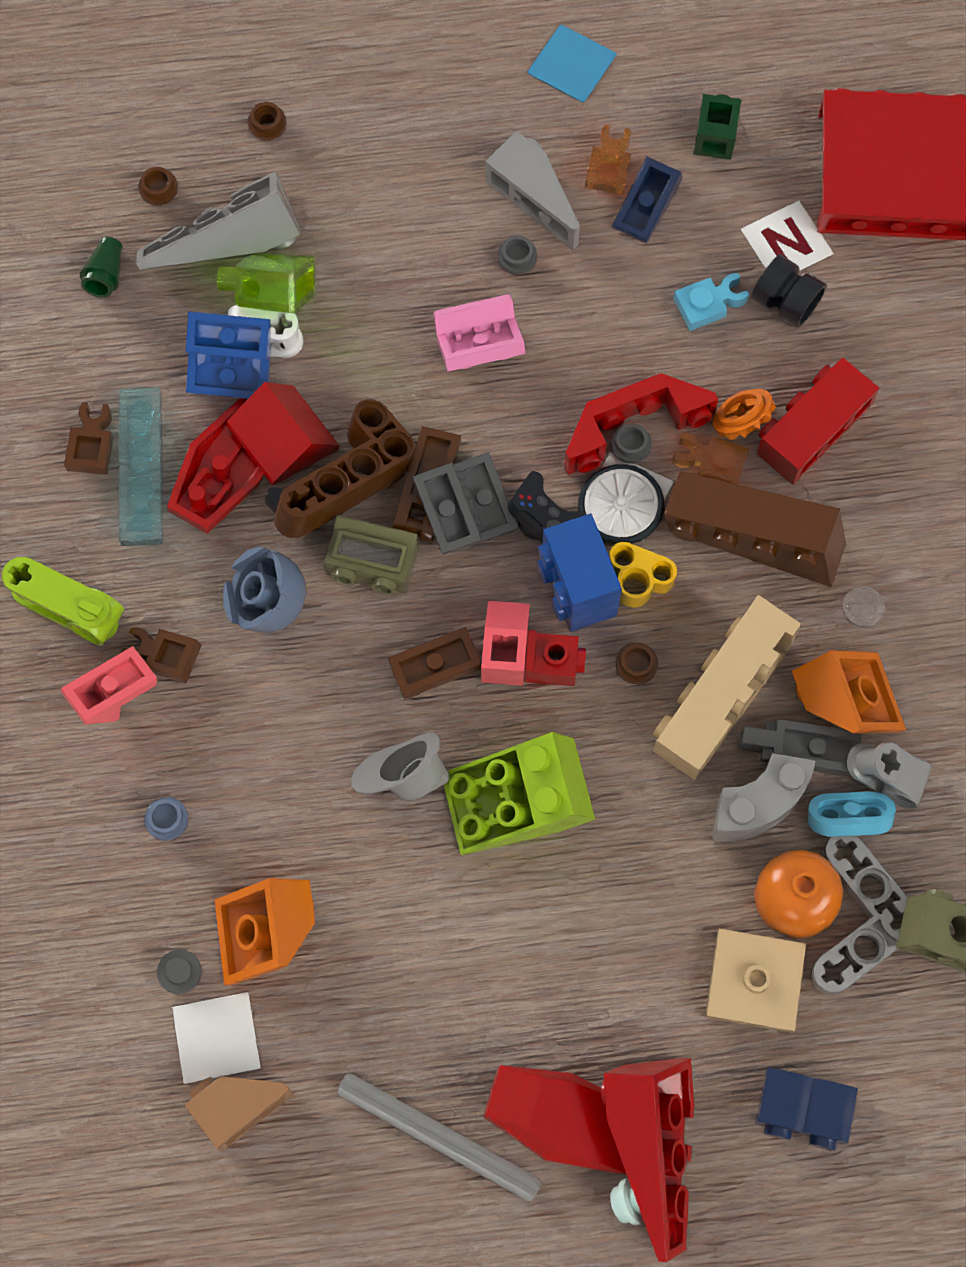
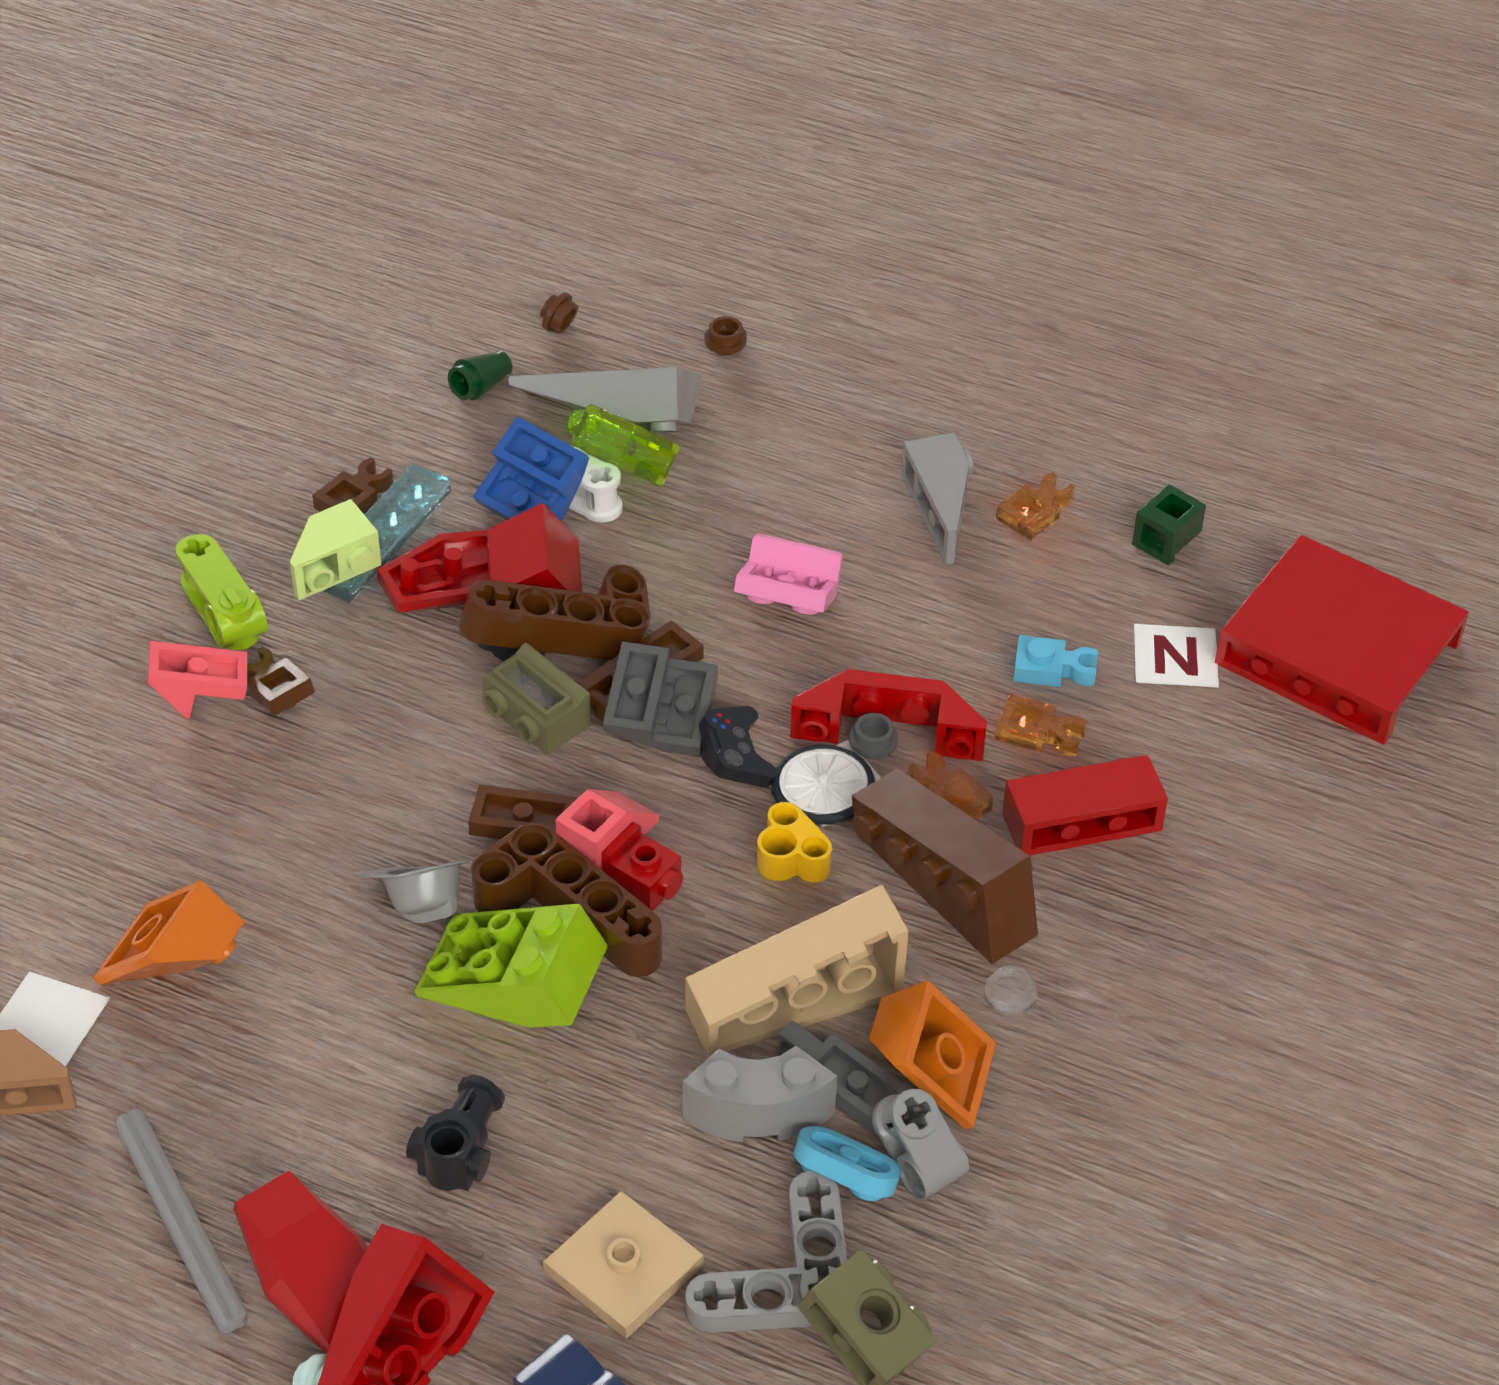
camera: 30 degrees right, 25 degrees down
(121, 170) = (558, 312): none -> reddish brown plate
(130, 512) = (333, 549): none -> yellowish green slope
(157, 186) = (582, 338): reddish brown plate -> none
(166, 819) = (159, 811): sand blue plate -> none
(179, 971) = (60, 941): dark grey plate -> none
(264, 591) = (409, 674): sand blue cylinder -> none
(517, 255) = (882, 537): dark grey plate -> none
(526, 719) = (545, 867): none -> reddish brown beam
(572, 63) = (1063, 422): dark azure sticker -> none
(579, 573) = (722, 800): blue brick -> none
(582, 952) = (457, 1132): none -> black connector
(636, 663) = (727, 918): reddish brown plate -> none
(647, 199) = (1053, 554): dark blue slope -> none
(735, 369) = (1034, 723): none -> clear orange plate
(735, 419) = (1007, 760): orange gear -> none
(788, 290) = (1137, 683): black wheel -> none
(798, 893) = (734, 1207): orange cylinder -> none

